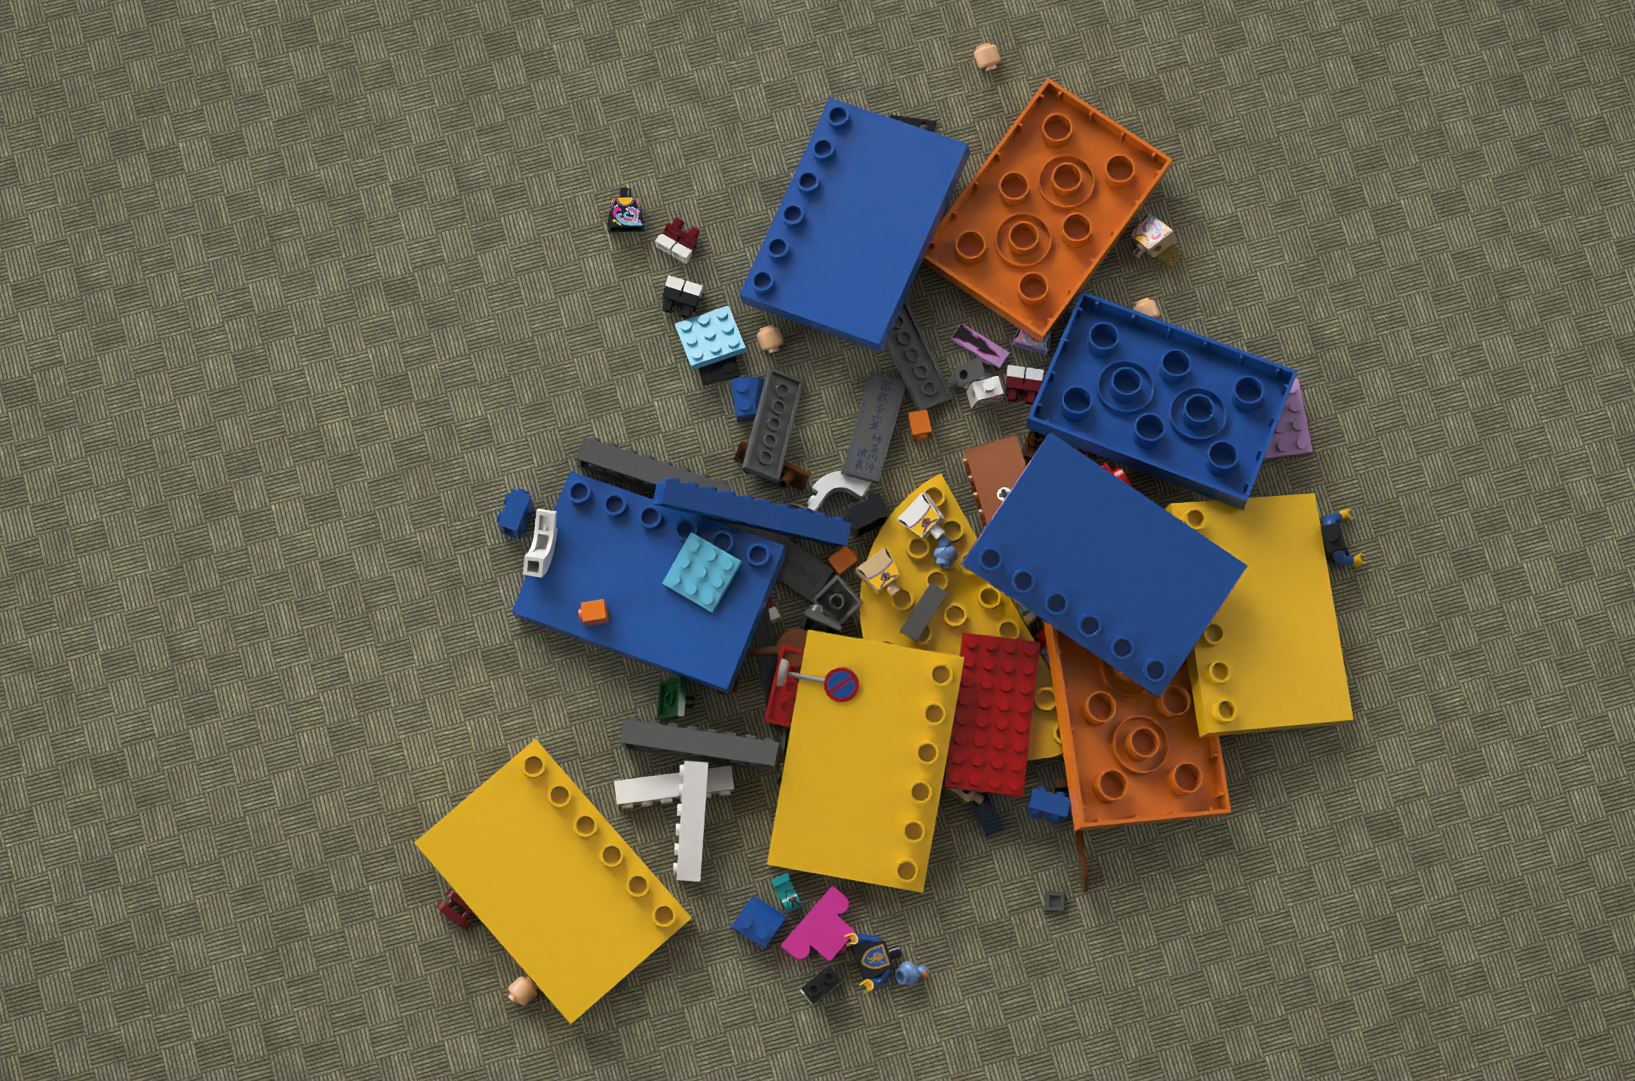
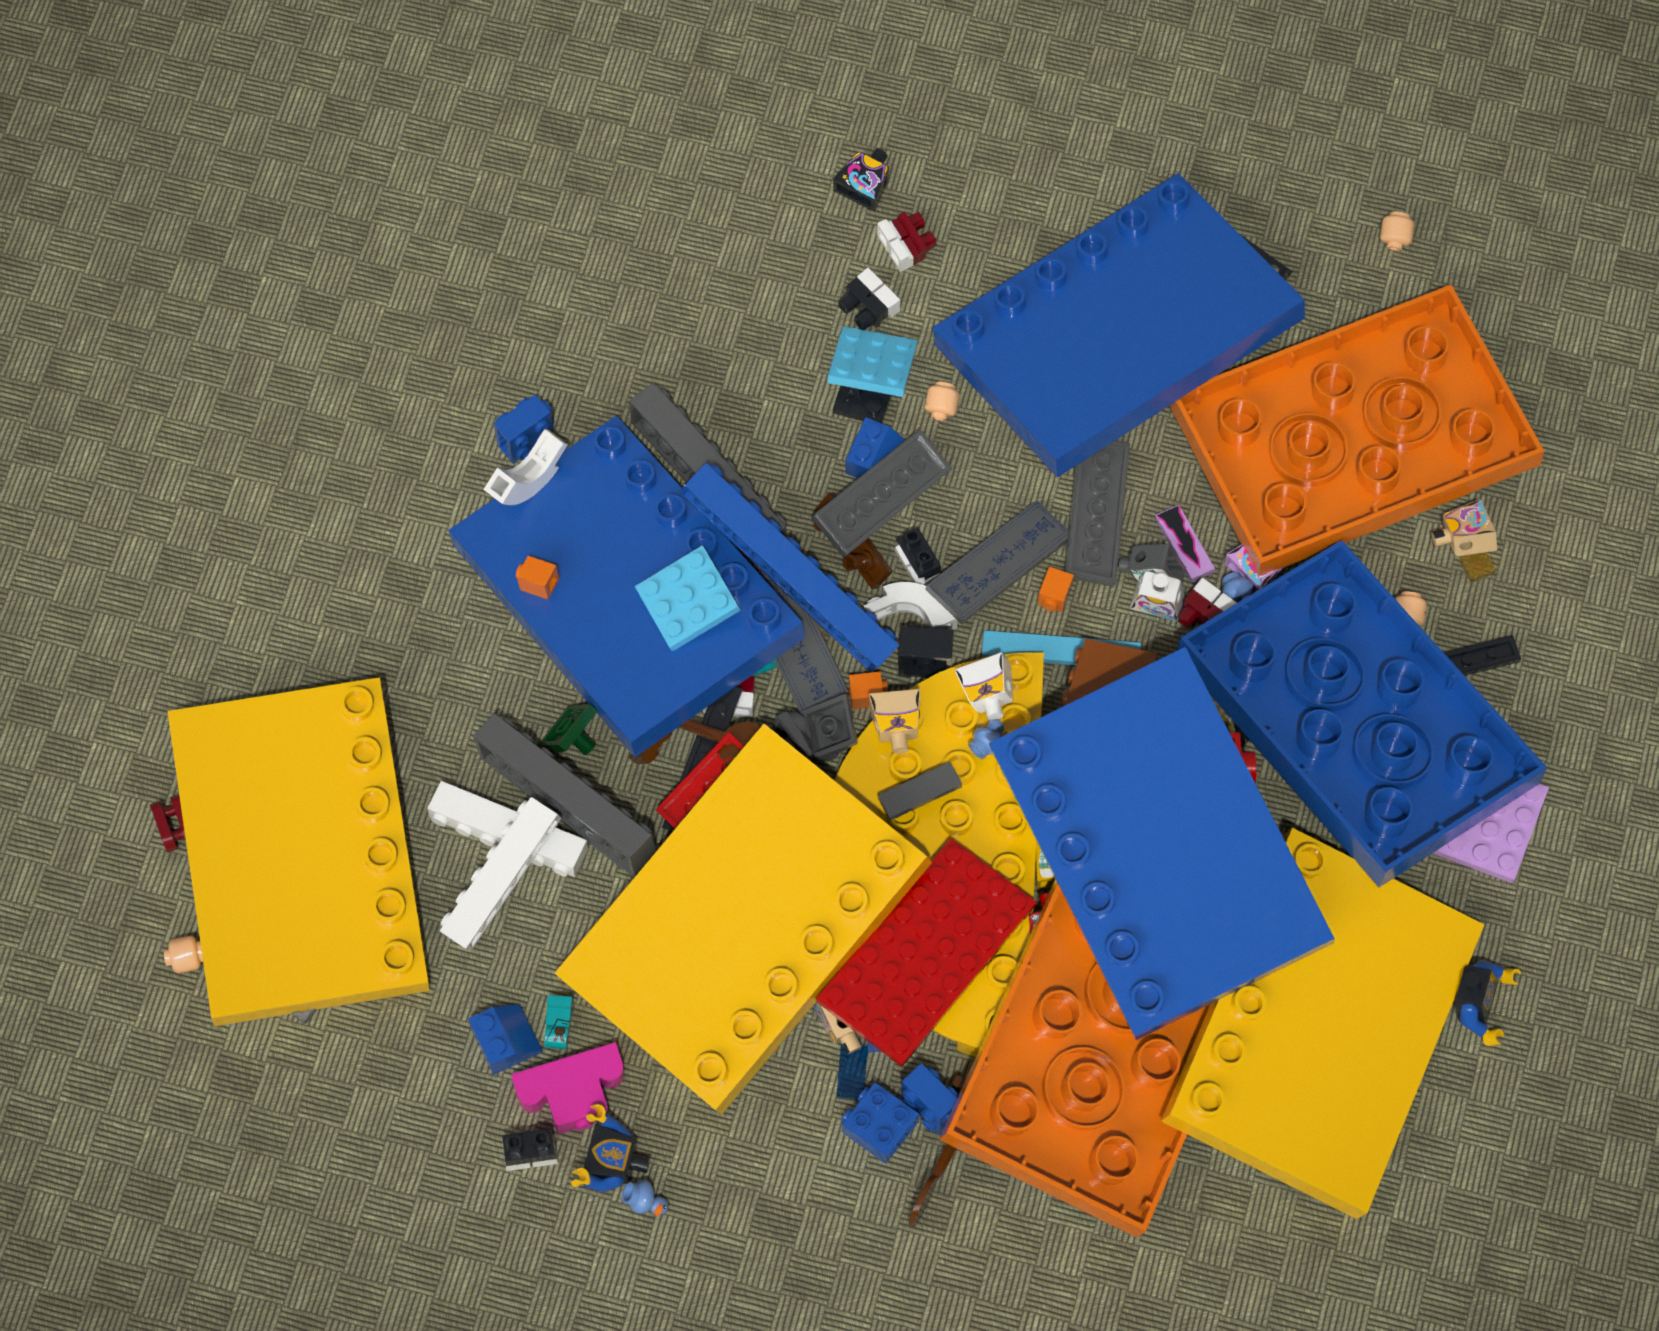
camera: 35 degrees right, 10 degrees down
(819, 451) = (917, 557): none -> black hips
(839, 684) = (762, 806): piece -> none
(941, 464) = (1055, 648): none -> medium azure tile
(1025, 838) = (879, 1122): none -> blue brick
(1033, 358) = (1236, 586): none -> medium blue animal
(1054, 901) = (869, 1219): dark grey tile -> none
(1208, 314) = (1485, 656): none -> black tile

